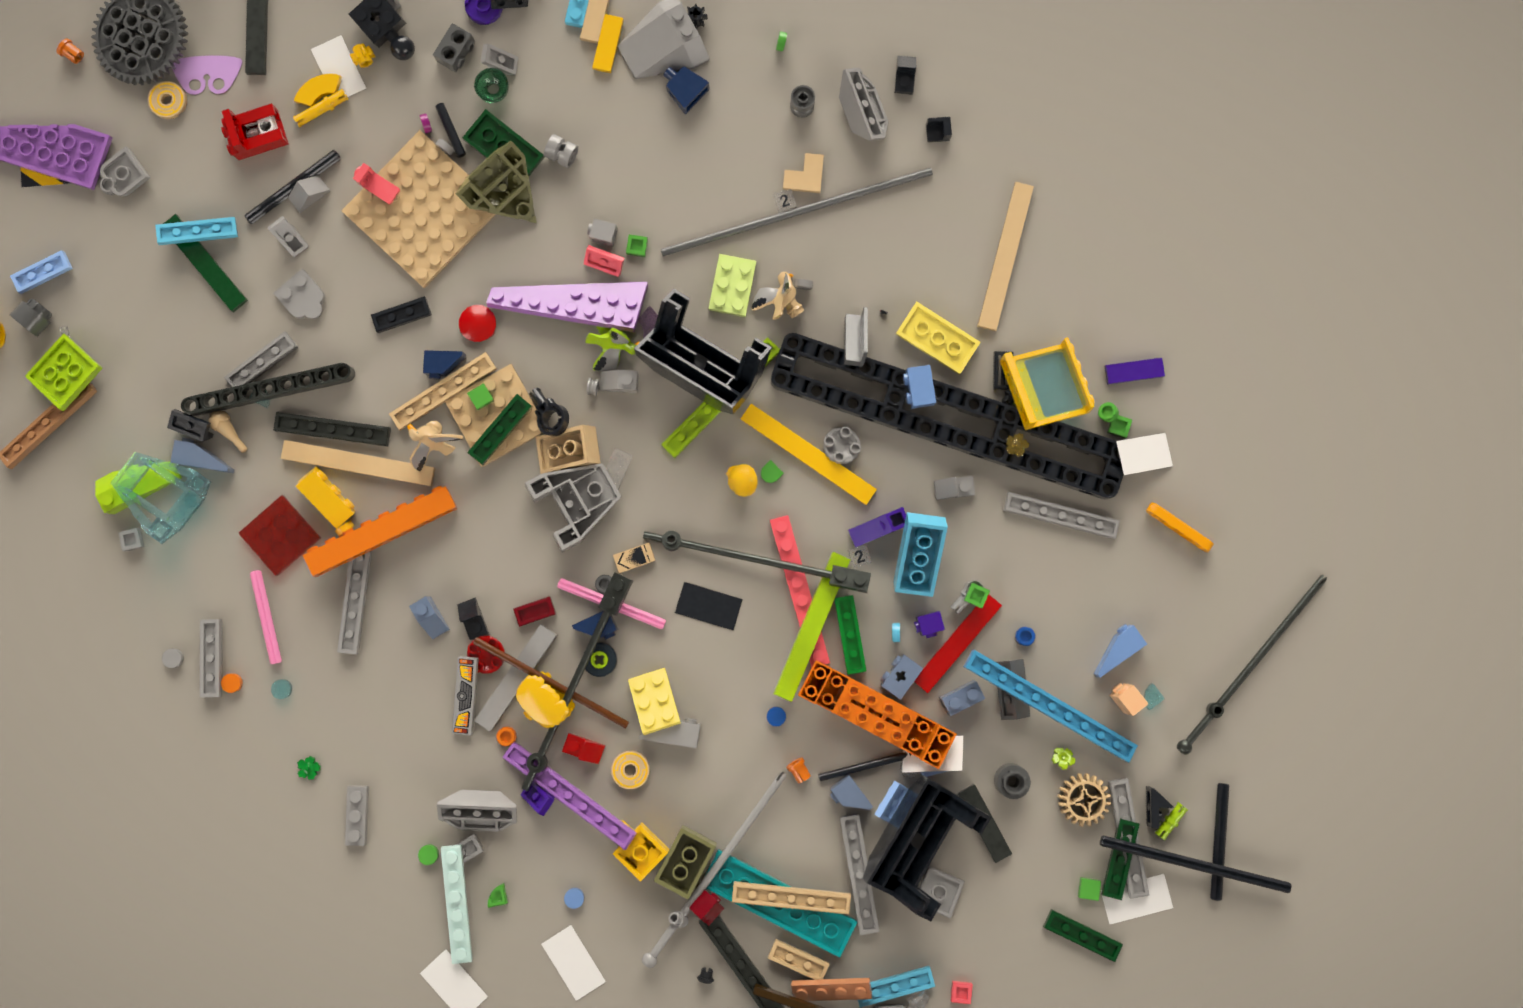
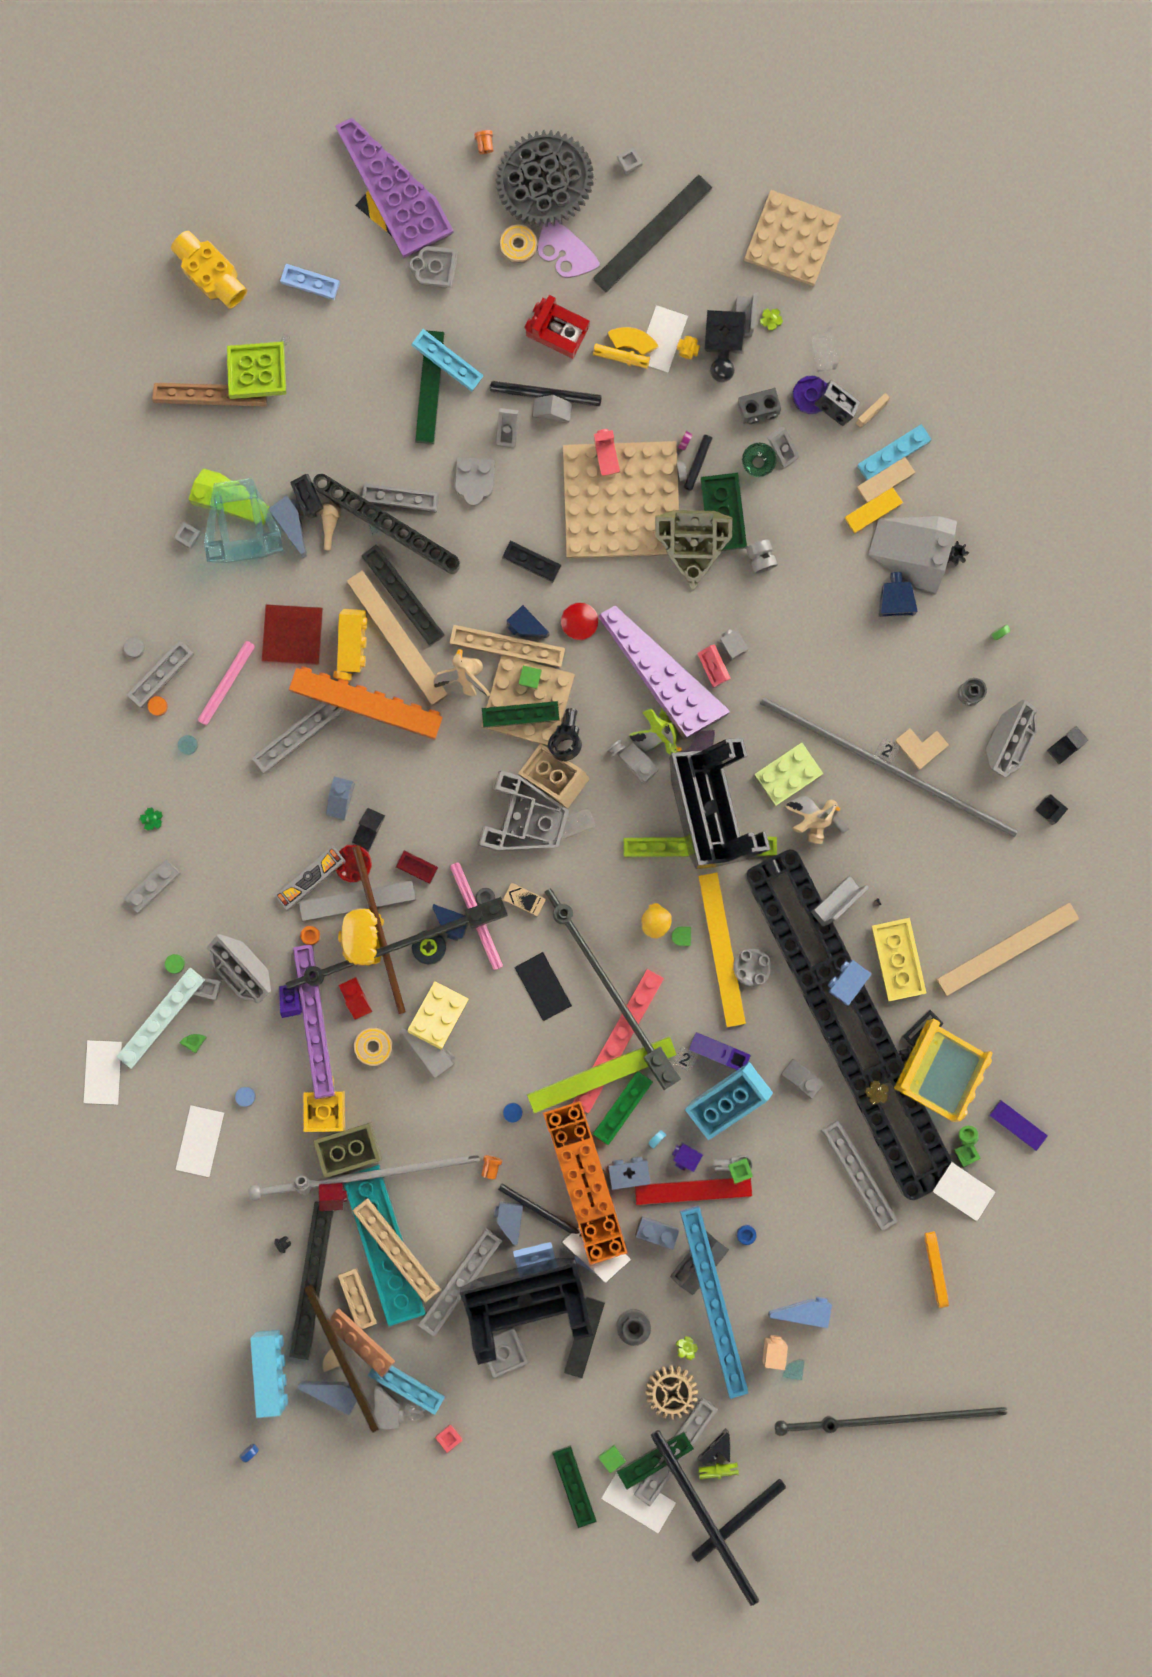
camera: 50 degrees right, 0 degrees up
(32, 316) = (273, 308): dark grey piece -> none
(636, 245) = (748, 677): bright green tile -> none

